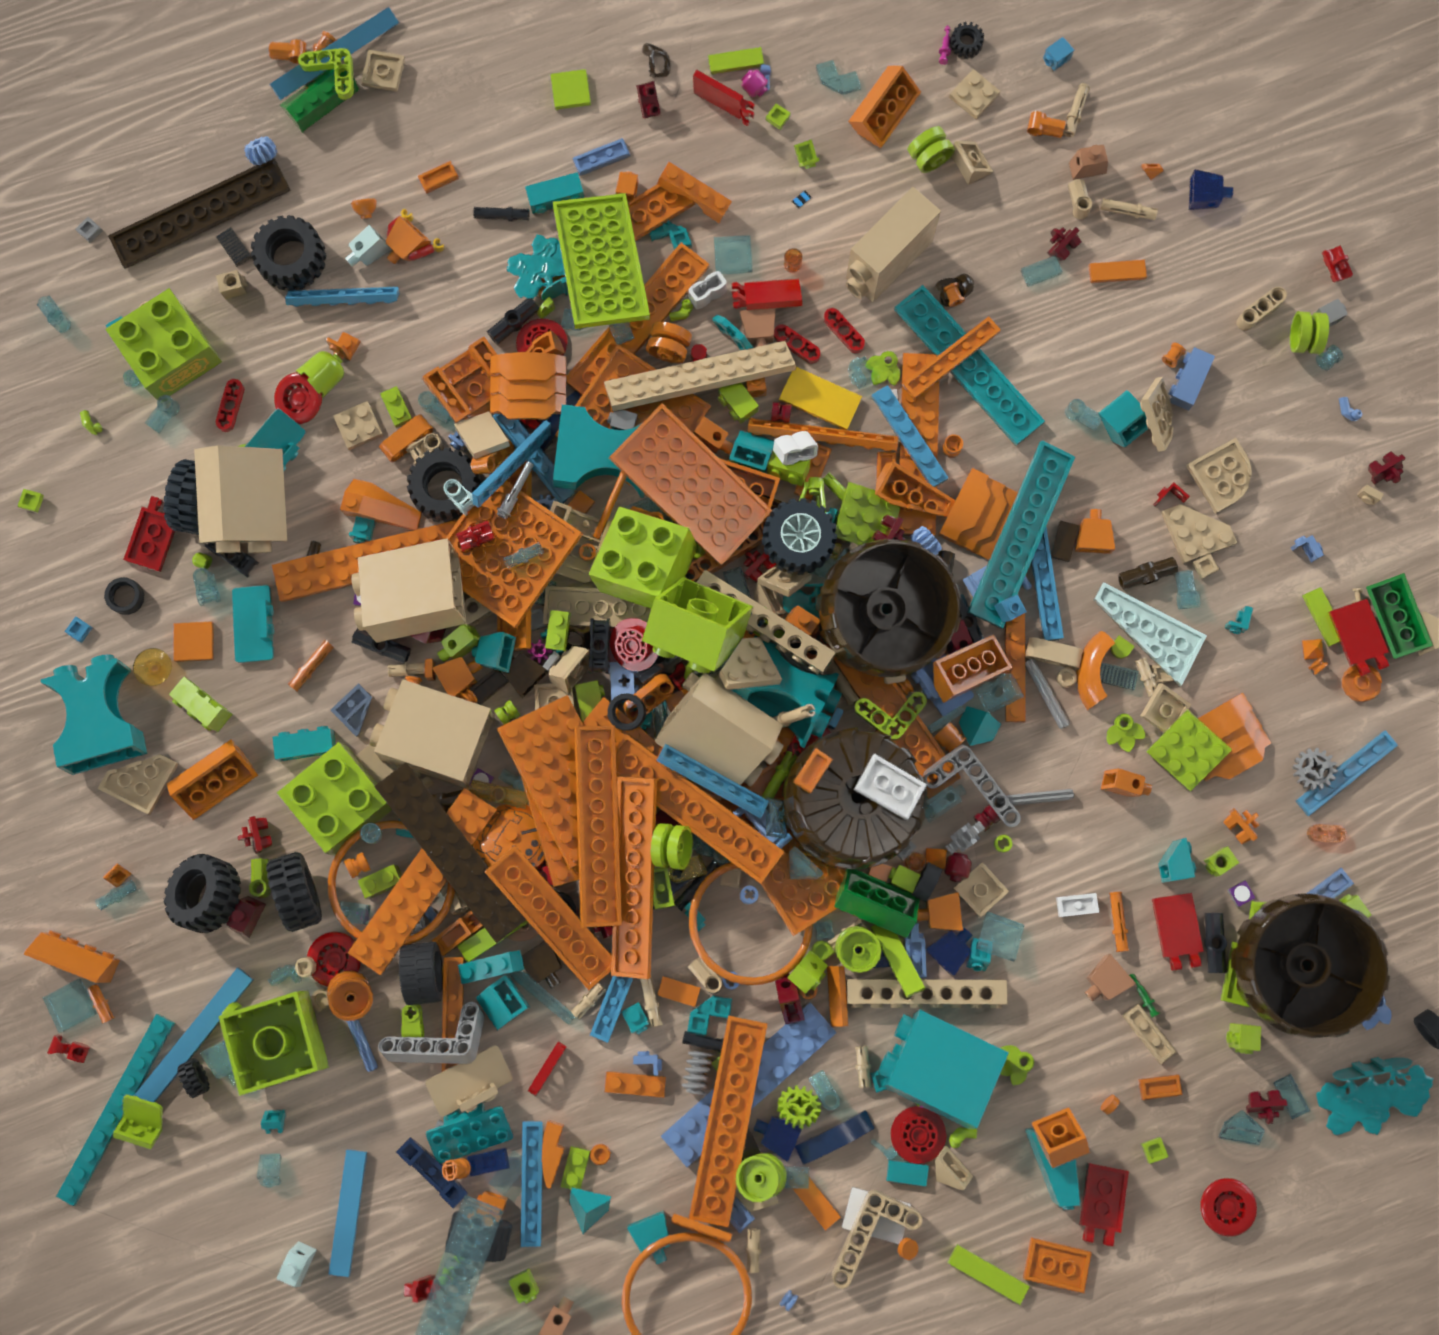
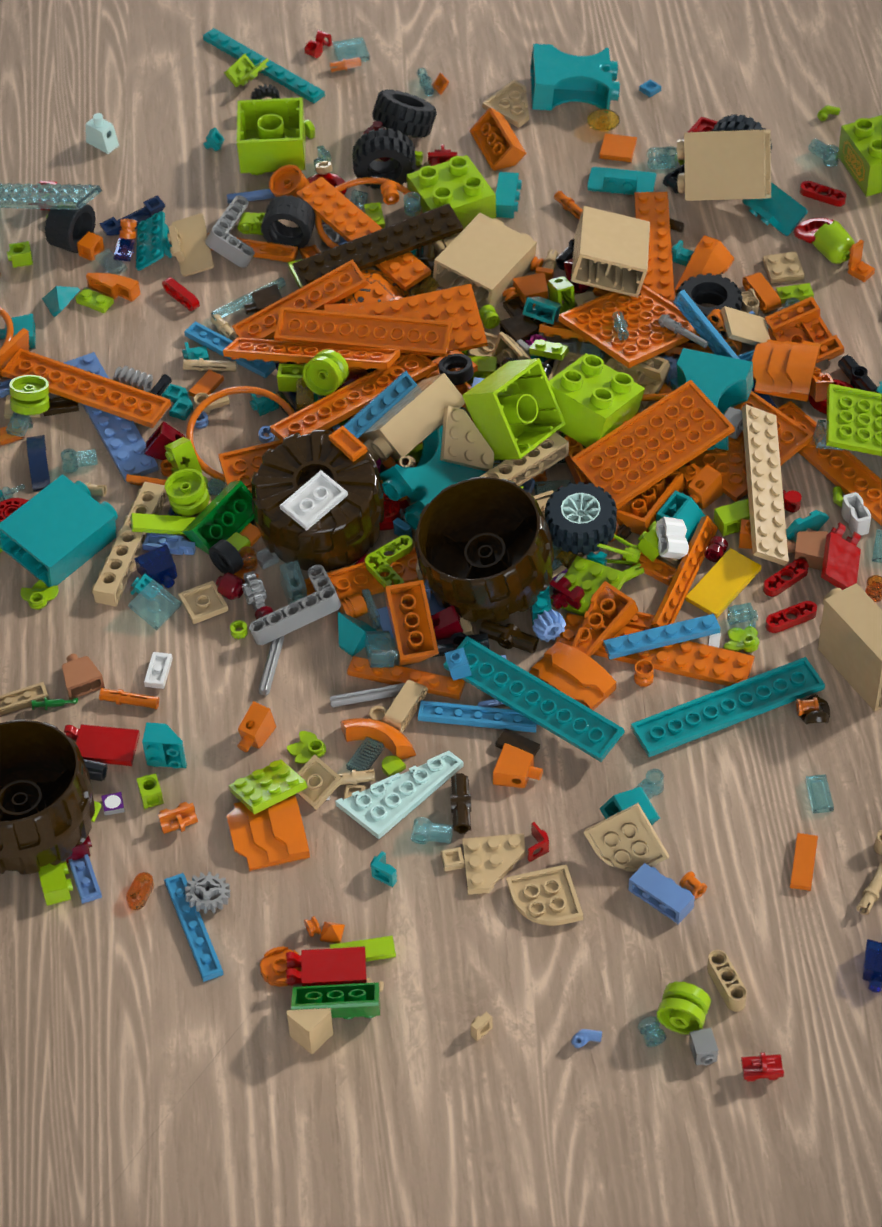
camera: 105 degrees right, 30 degrees down
(30, 500) = (768, 73): lime plate -> none
(73, 957) = (384, 50): orange slope -> none
(111, 589) = (666, 120): black tyre -> none
(194, 1036) = (322, 130): dark azure tile -> none
(200, 705) = (560, 140): lime wedge -> none
(269, 1170) = (179, 133): clear light blue bracket -> none
(348, 1213) = (126, 171): dark azure tile -> none
(353, 708) = (530, 225): sand blue wing -> none
(462, 498) = (694, 290): light aqua piece -> none
(475, 536) = (648, 300): red hips -> none
(490, 967) = (276, 267): teal brick -> none
(502, 1001) = (247, 277): teal slope -> none
(531, 1183) = (81, 267): dark azure plate -> none
(600, 1154) = (98, 316): orange tile -> none
(635, 1084) = (143, 346): orange plate -> none
(645, 1058) = (158, 355): medium blue bracket -> none
(669, 342) = (806, 473): orange wheel -> none
(778, 1136) = (57, 423): clear blue torso -> none
(798, 1107) = (75, 434): lime gear -> none
(942, 913) = (192, 568): orange torso -> none
(951, 358) = (736, 685): orange plate -> none
(1070, 238) = (851, 823): dark red hips -> none
(1311, 547) = (441, 953): medium blue bracket -> none
(1389, 471) = (503, 1053): dark red hips -> none

